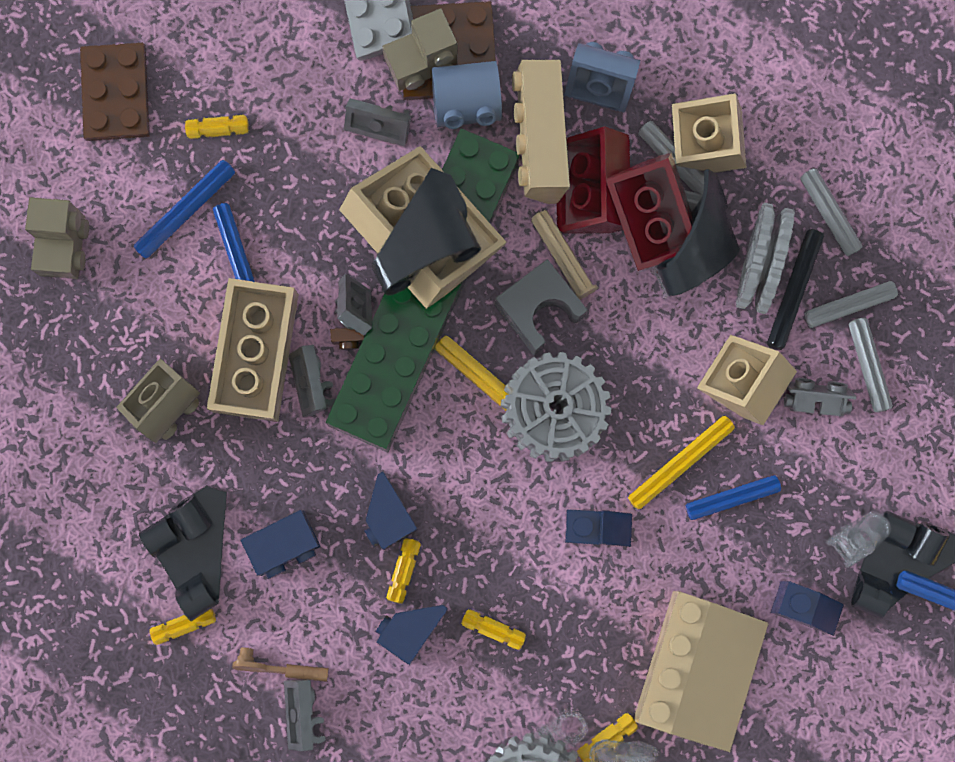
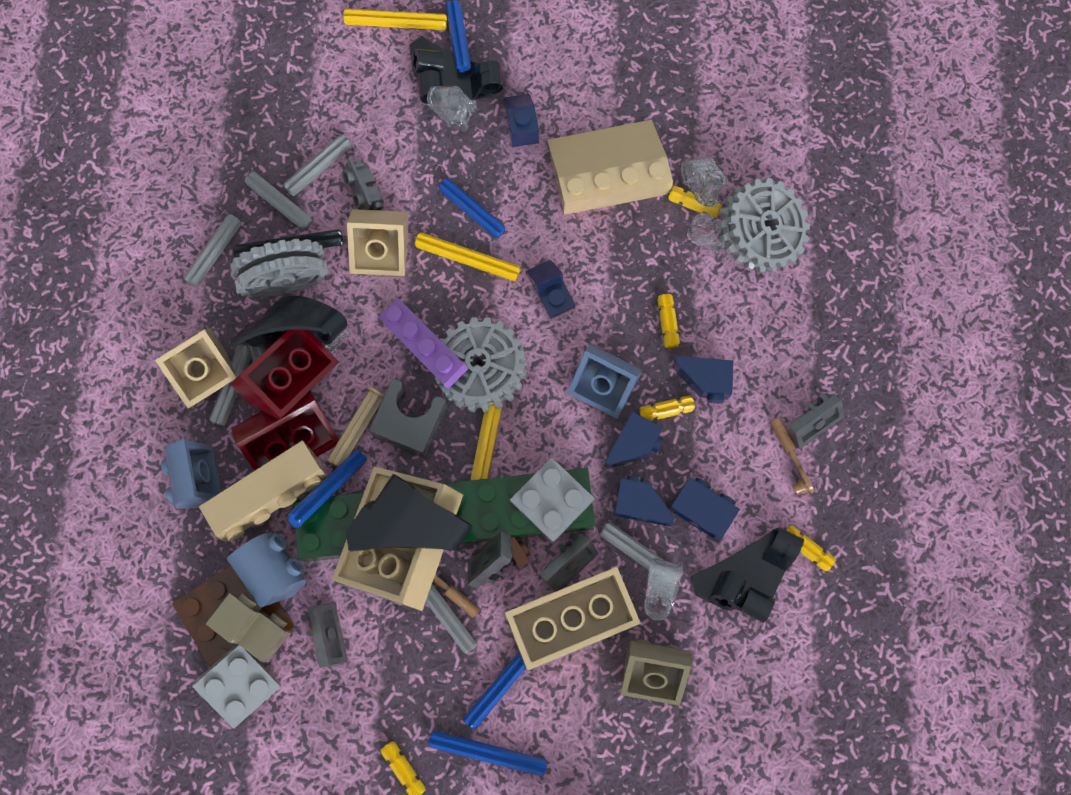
camera: 115 degrees left, 5 degrees down
(228, 452) = (663, 584): none -> clear piece
(279, 455) = (628, 545): none -> light grey axle
(323, 241) = (450, 621): none -> light grey axle
(324, 484) = (641, 503): none -> dark blue slope
(339, 260) = (457, 597): none -> medium nougat piece
(372, 393) = (552, 500): none -> light grey plate
(466, 522) = (604, 381): none -> sand blue brick
(512, 189) = (326, 488): none -> blue axle
(609, 361) = (423, 343): none -> medium lavender plate

